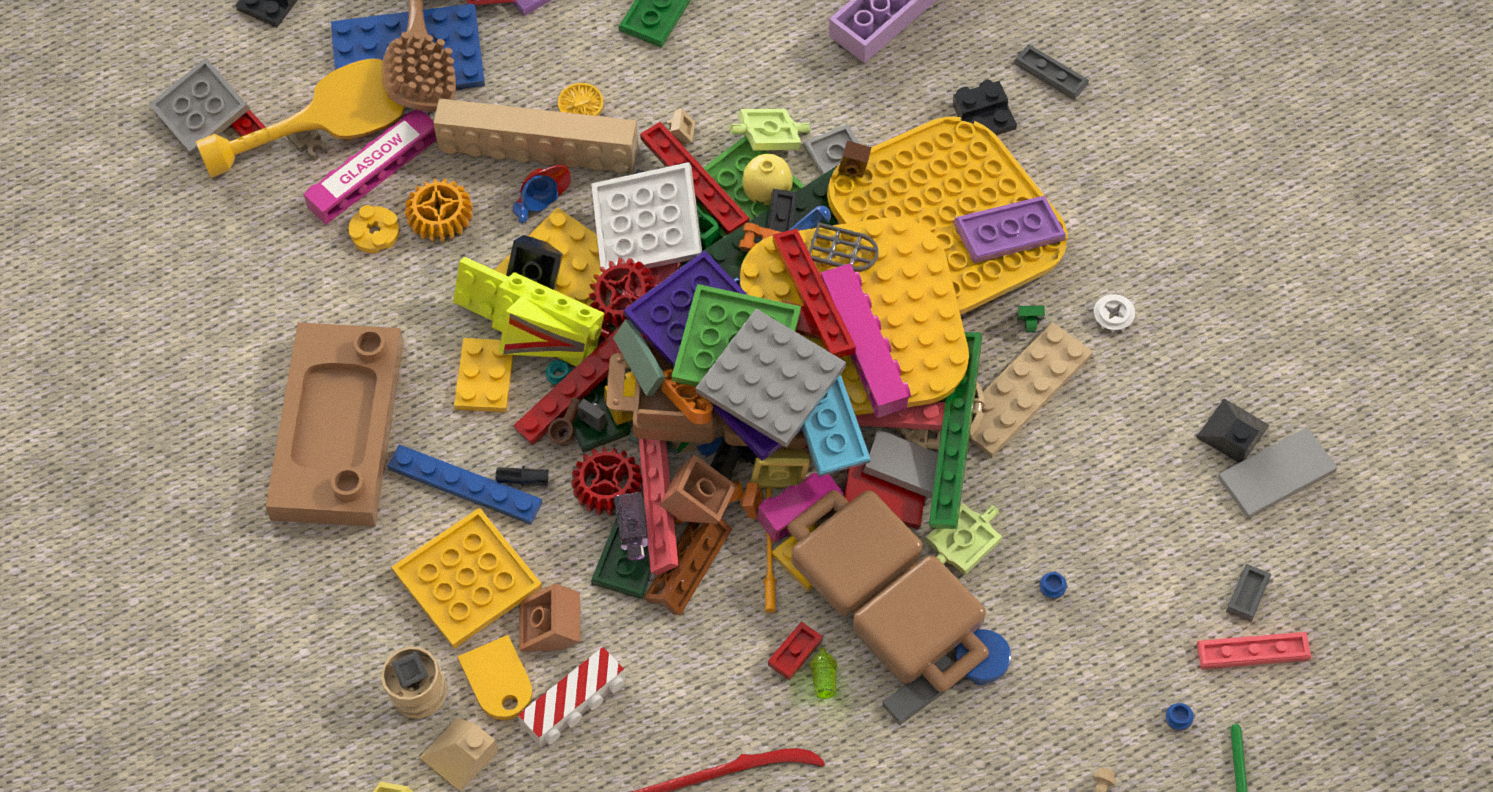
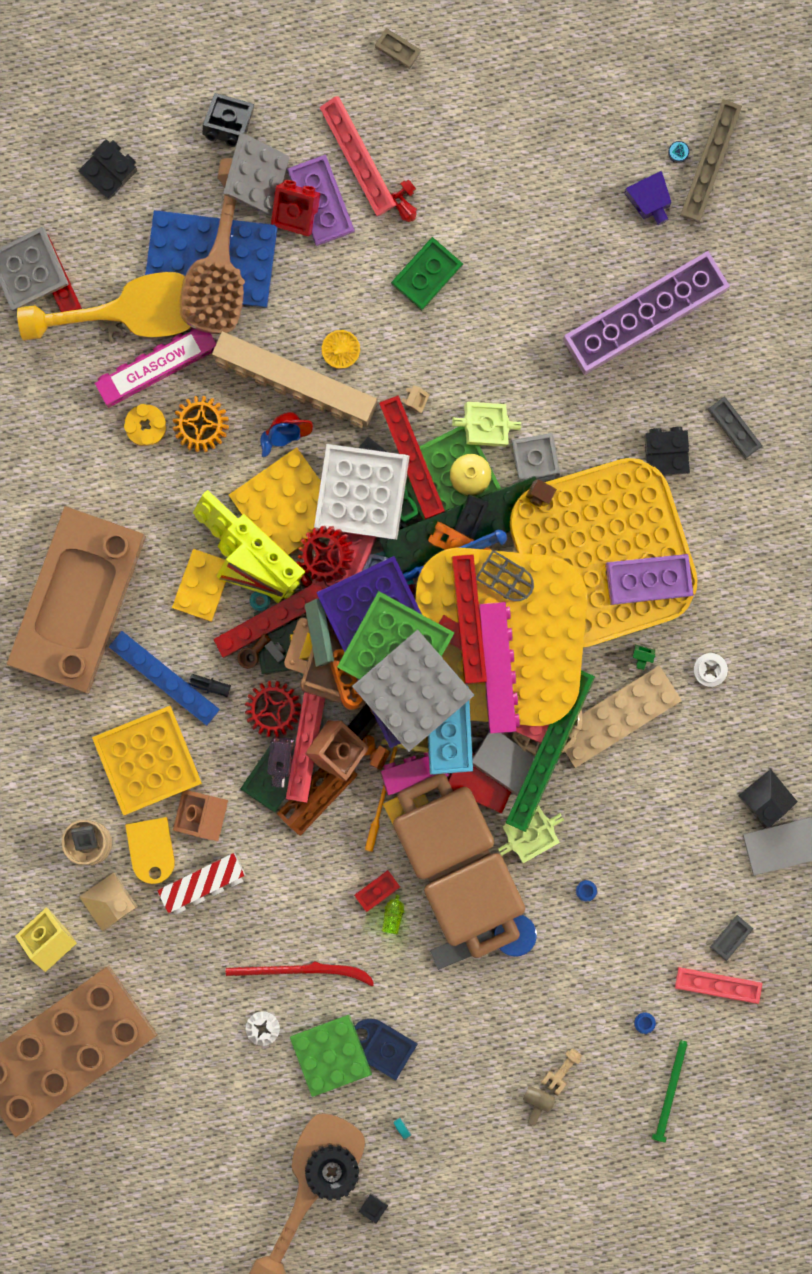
camera: 15 degrees right, 25 degrees up
(535, 261) = (263, 505): black slope -> none

